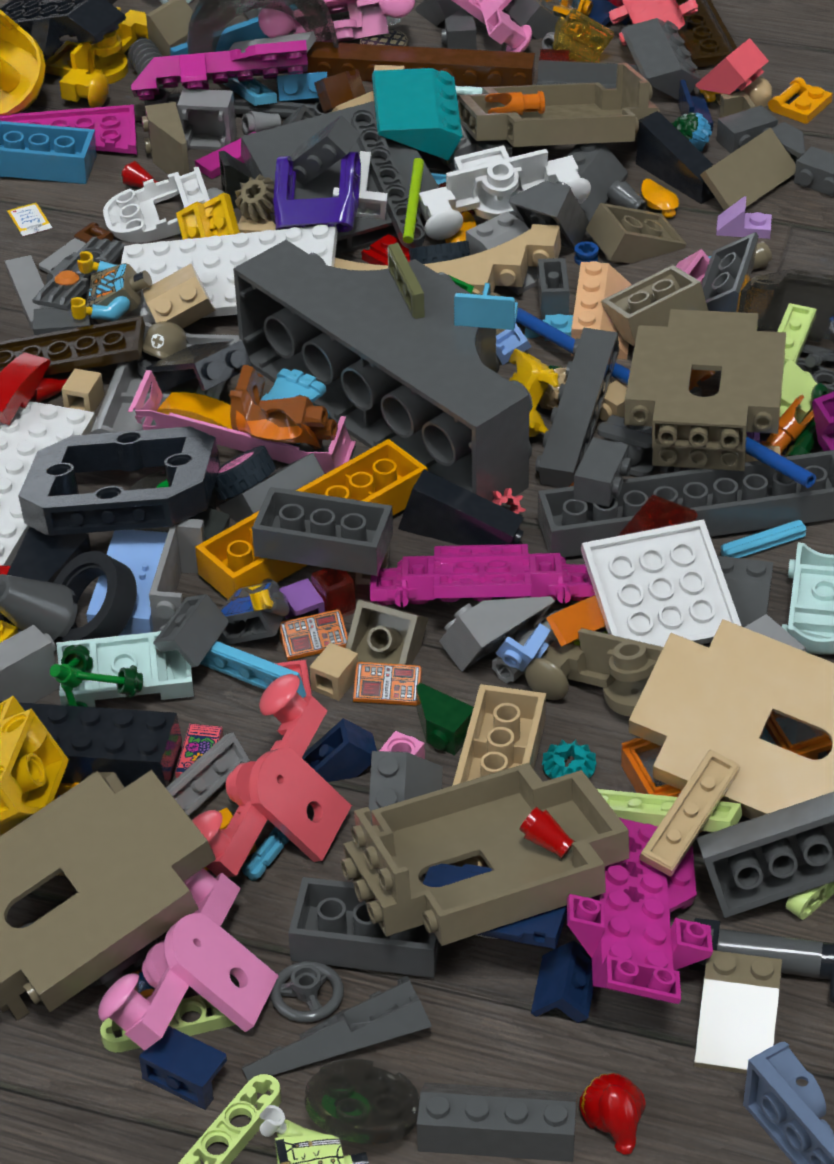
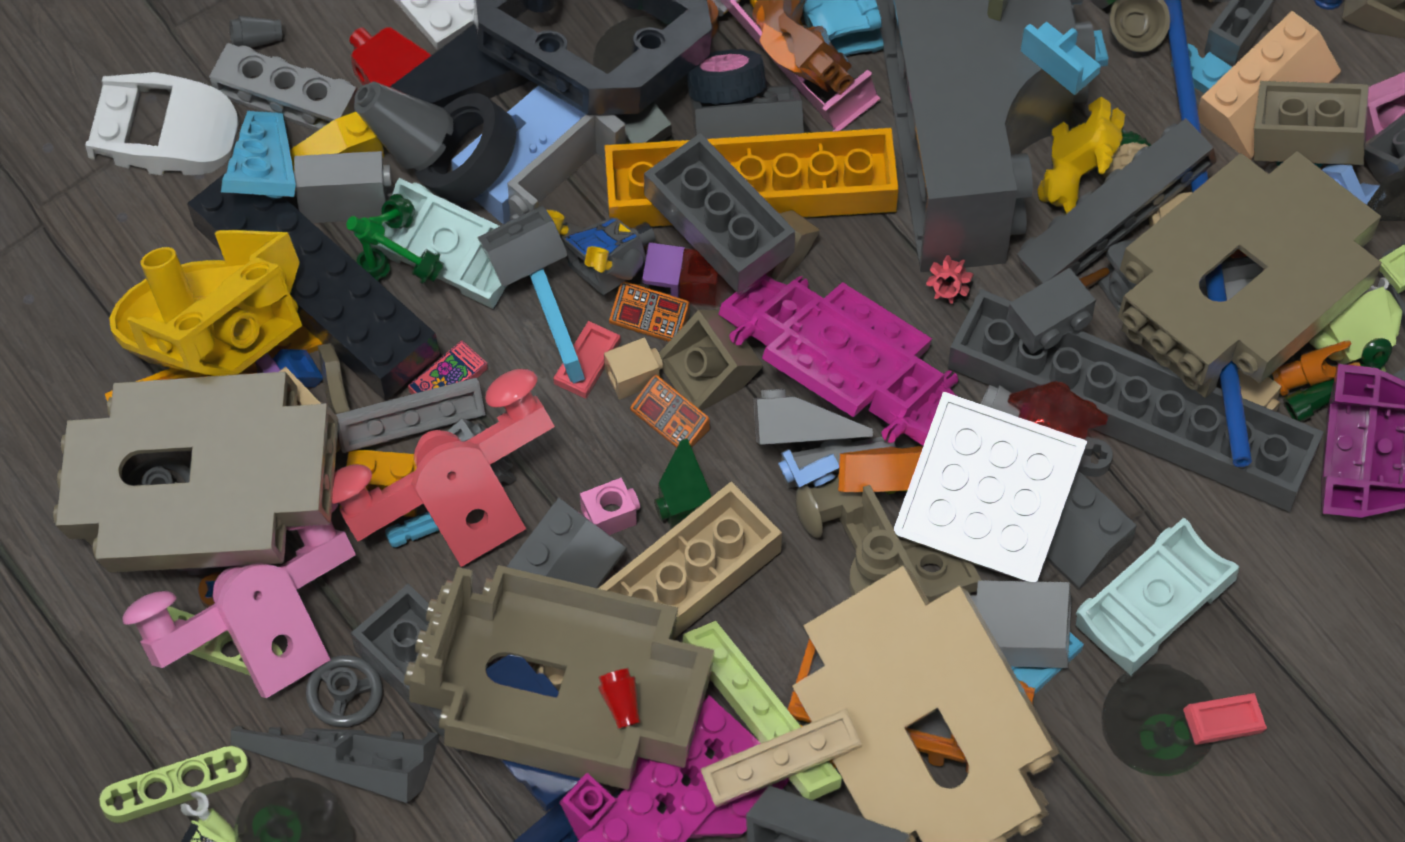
camera: 35 degrees right, 20 degrees up
(182, 1066) = (183, 695): dark blue panel -> none
(341, 752) = (560, 465): dark blue slope -> none
(457, 515) = (893, 264): black slope -> none
(508, 341) = (1131, 67): light blue bracket -> none
(555, 757) = (760, 626): teal gear -> none
(764, 540) = (1173, 483): medium azure axle -> none

